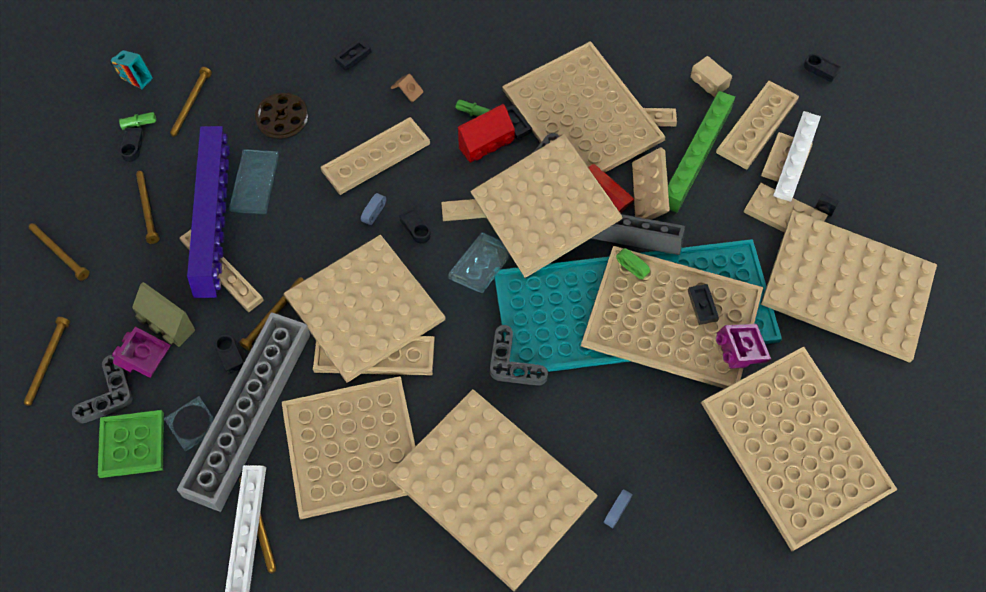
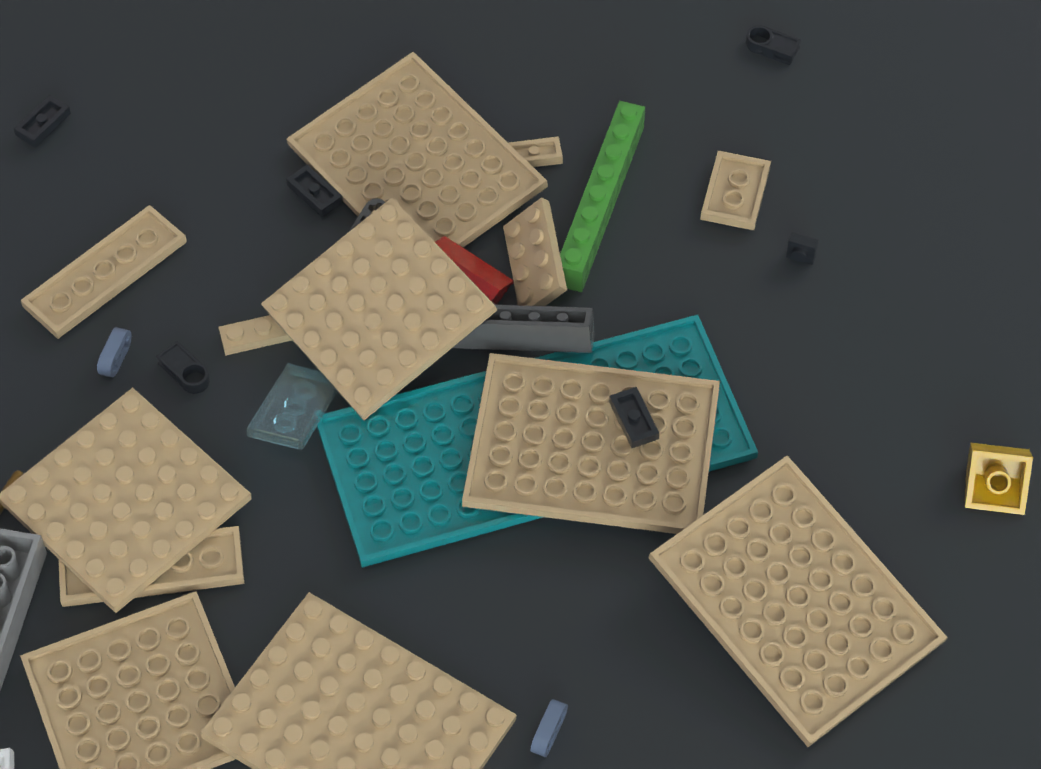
camera: 10 degrees left, 5 degrees down
(409, 87) = (140, 159): medium nougat bracket -> none
(472, 109) = (246, 180): bright green axle -> none
(486, 133) = (271, 214): red slope -> none
(504, 362) = (351, 547): dark grey beam -> none
(633, 263) = (522, 374): bright green beam -> none
(710, 76) = (605, 80): tan brick -> none
(742, 345) = (698, 467): magenta plate -> none
(757, 125) = (685, 144): tan plate -> none
(776, 210) = (743, 270): tan plate -> none
(797, 156) = (749, 183): white plate -> none
(850, 285) = (849, 360): tan plate -> none
(943, 382) = (997, 478): none -> yellow slope

